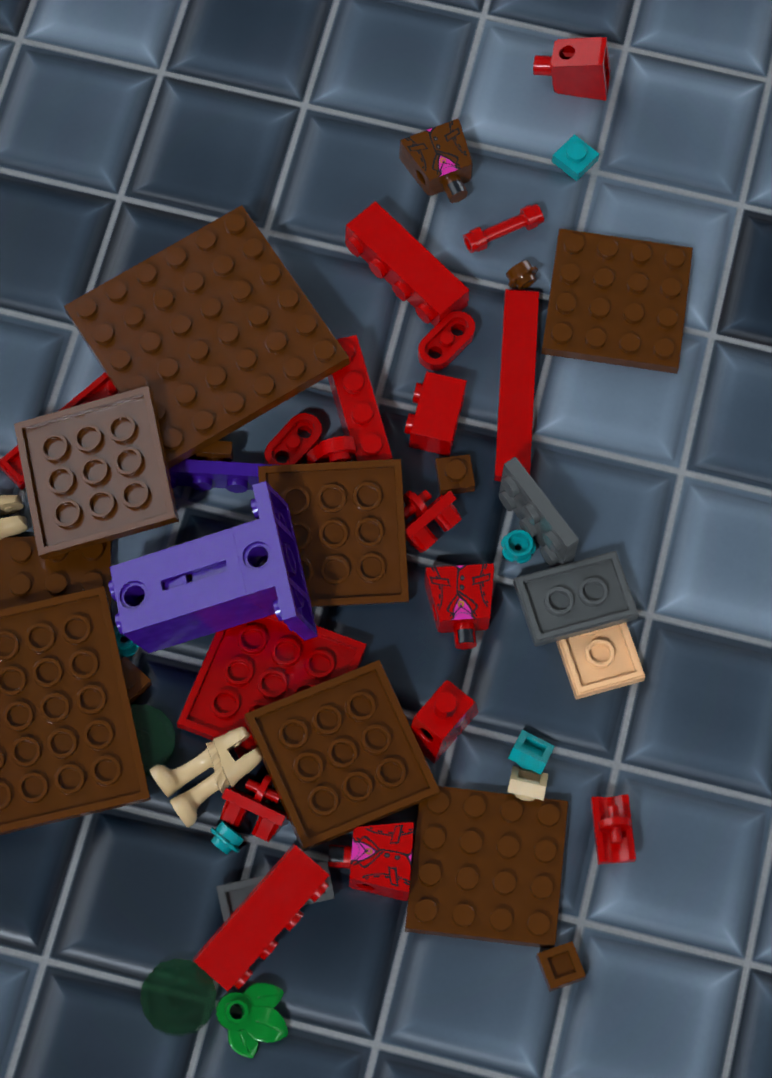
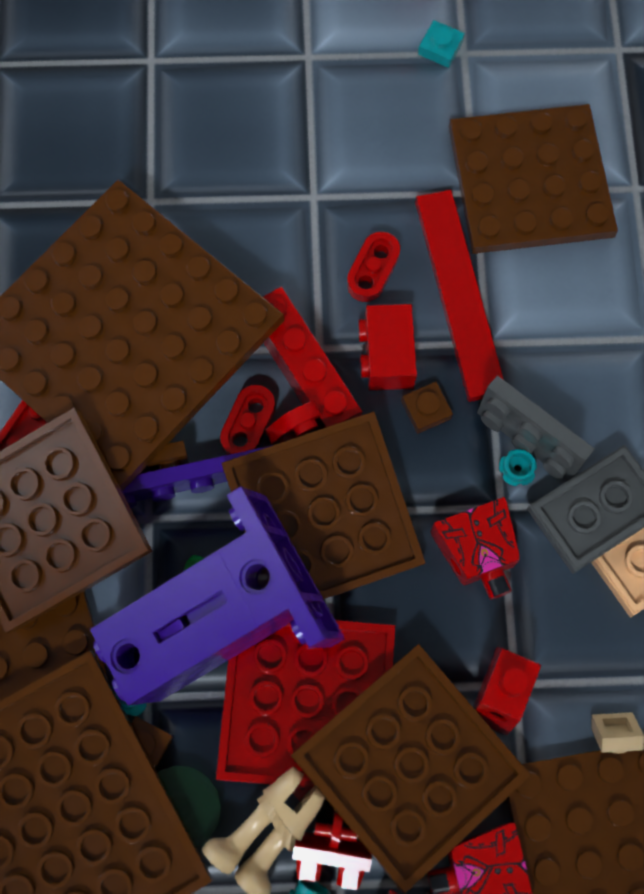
camera: 15 degrees left, 5 degrees up
(405, 265) = (306, 198): red brick -> none
(439, 160) = (306, 80): reddish brown torso -> none
(440, 510) = (422, 452): red hips -> none
(478, 239) = (414, 117): red bar -> none
(522, 275) = (428, 177): reddish brown plate -> none
(531, 752) = (609, 695): teal plate -> none

